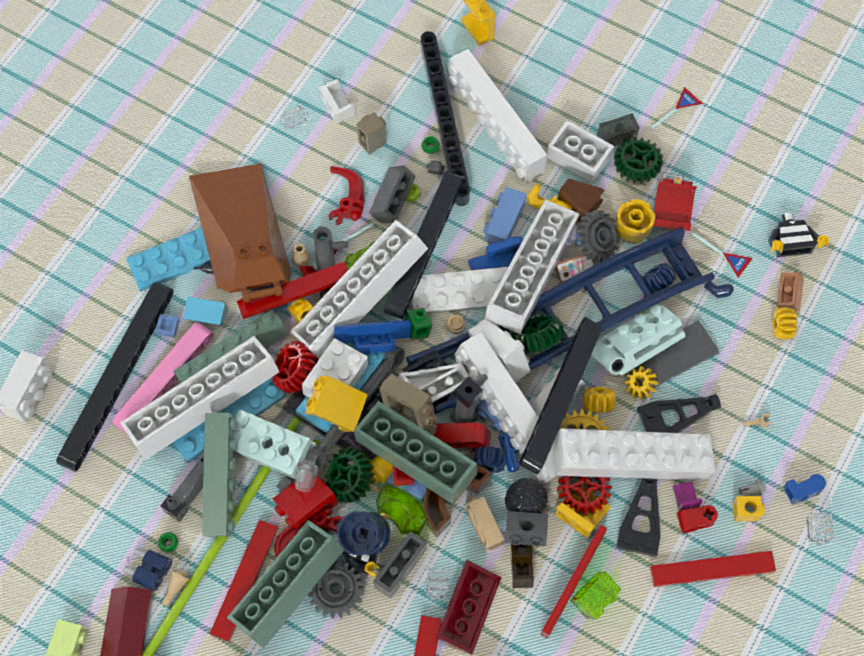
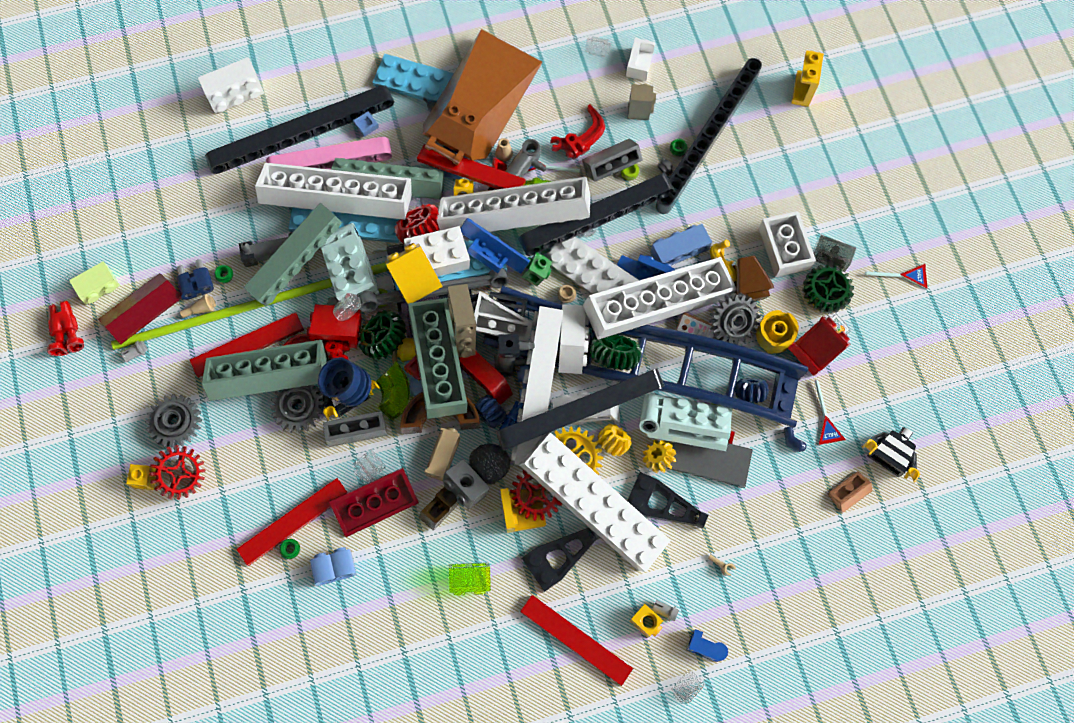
camera: 40 degrees right, 5 degrees up
(205, 311) = (400, 135): medium azure brick -> none
(497, 116) = (747, 165): white brick -> none
(572, 584) = (464, 553): red tile -> none
(686, 496) = (609, 569): magenta bracket -> none
(693, 519) = (596, 590): red piece -> none
(784, 323) = (817, 510): yellow gear -> none

